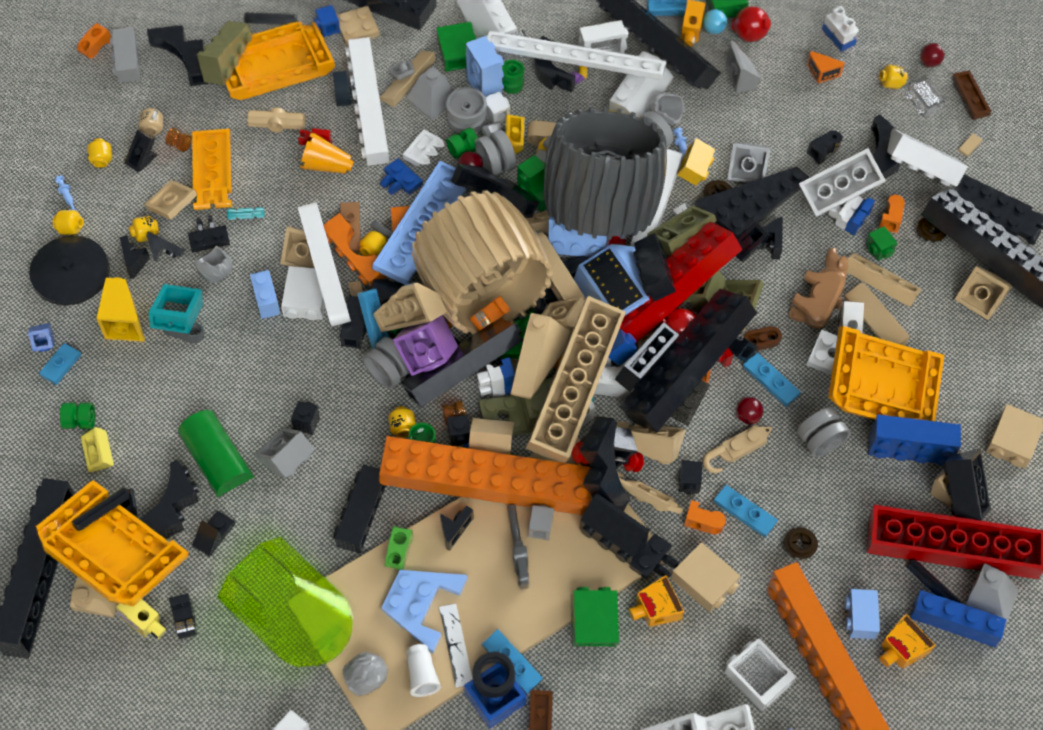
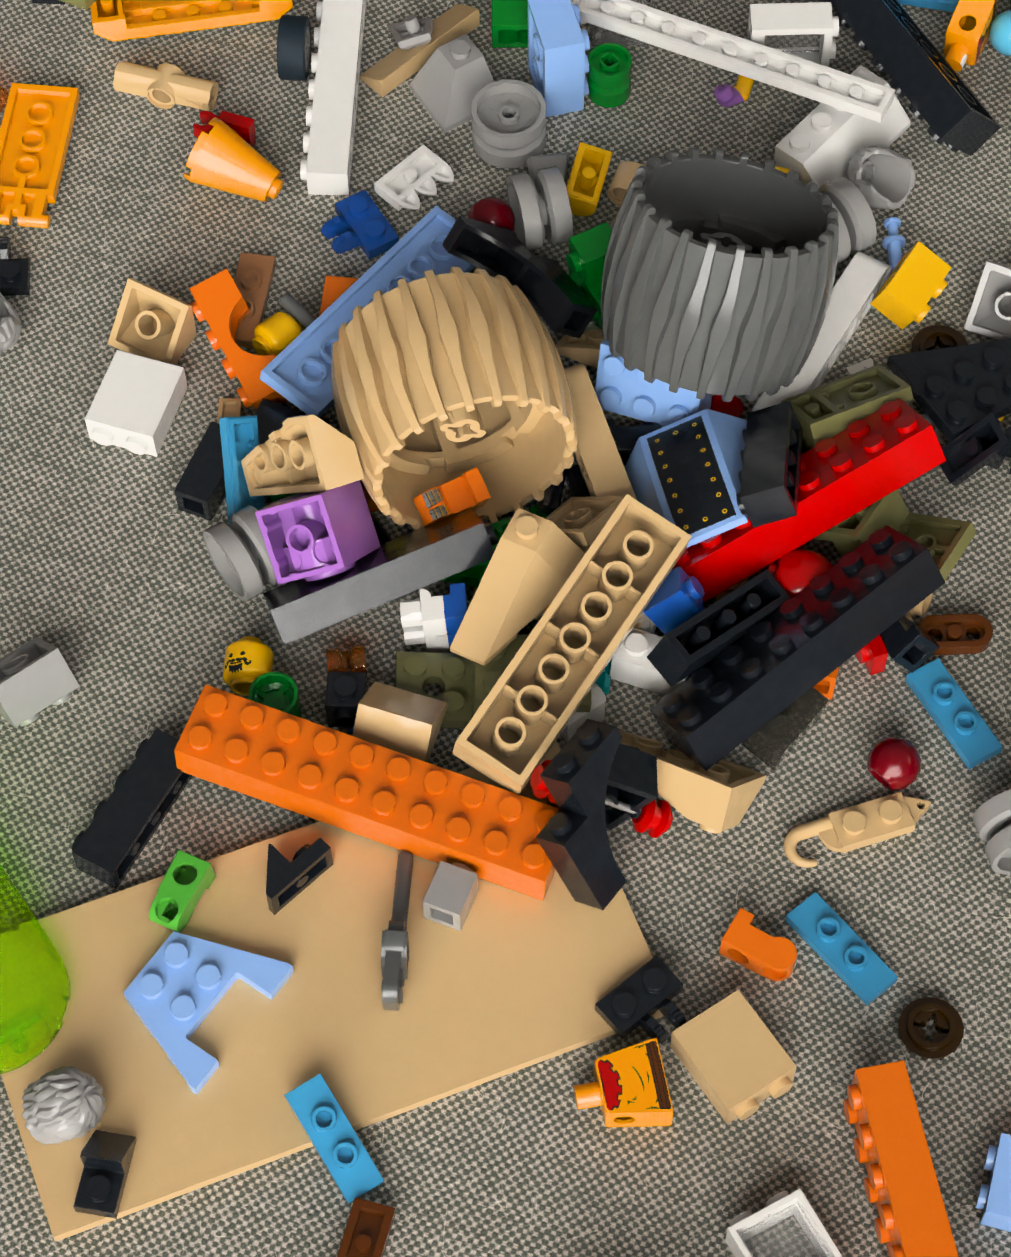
camera: 15 degrees right, 0 degrees up
(245, 213) = (69, 243): teal axle -> none
(265, 294) = (64, 393): light blue brick -> none
(305, 417) = (78, 625): black brick -> none
(324, 264) = (175, 357): white beam -> none
(396, 705) = (104, 1173): none -> black slope
(421, 672) = (164, 1123): white plant -> none
(455, 644) = (241, 1088): white sticker -> none
(461, 143) = (485, 180): green wheel -> none
(493, 657) = (286, 1123): black tyre -> none
(495, 709) = (286, 1192): blue brick -> none
(497, 107) = (567, 126): white brick -> none
(551, 75) = (684, 86): black arch -> none
(594, 617) = (505, 1088): green brick -> none
(613, 529) = (578, 933): black slope -> none
(650, 495) = (665, 882): tan plate -> none
(690, 477) = (751, 865): black brick -> none

